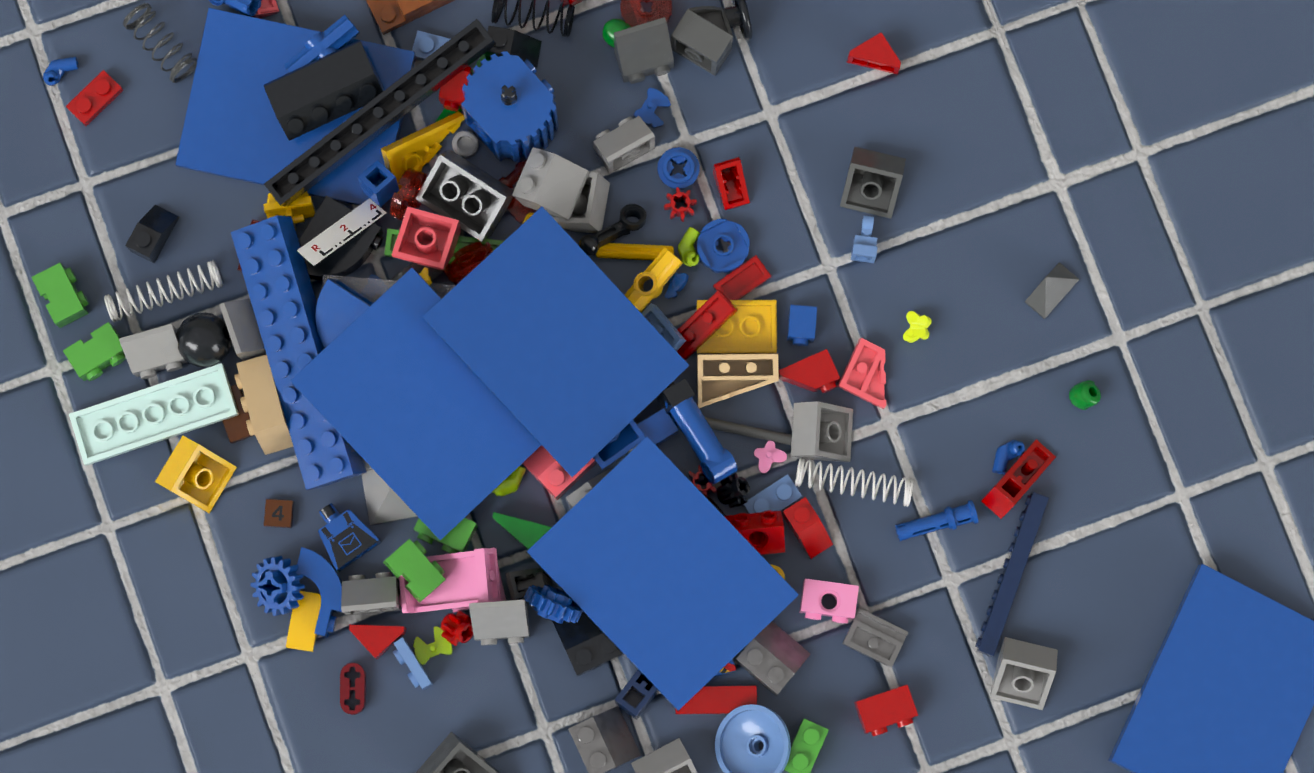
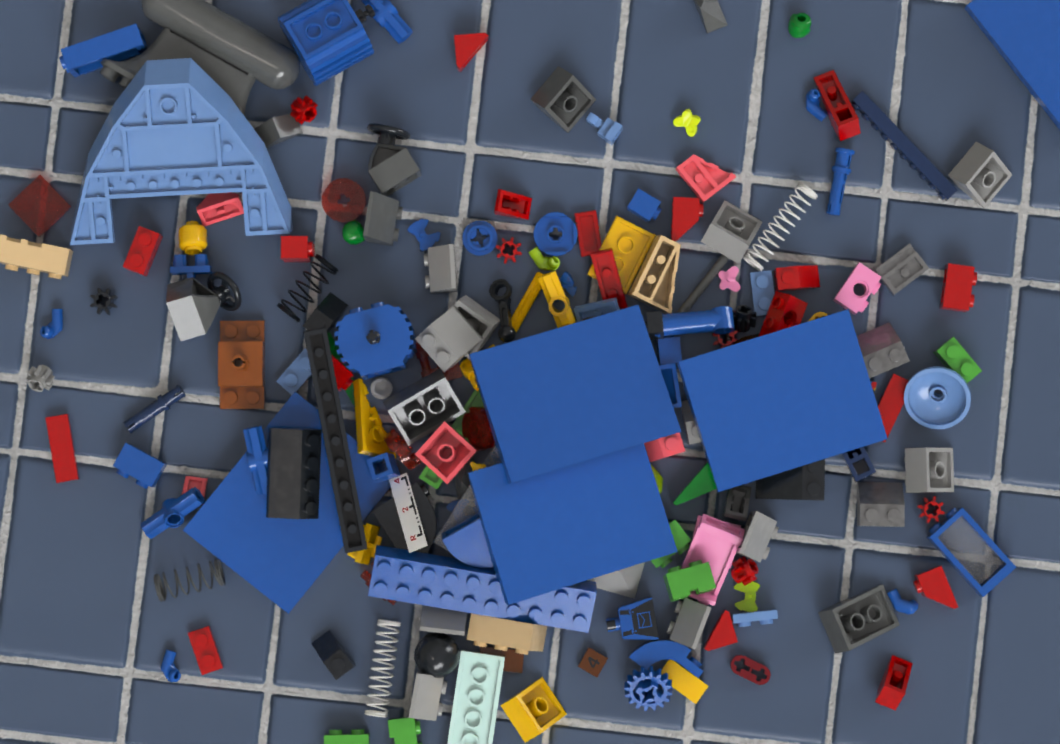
camera: 60 degrees left, 5 degrees up
(553, 604) = (764, 492): blue gear -> none

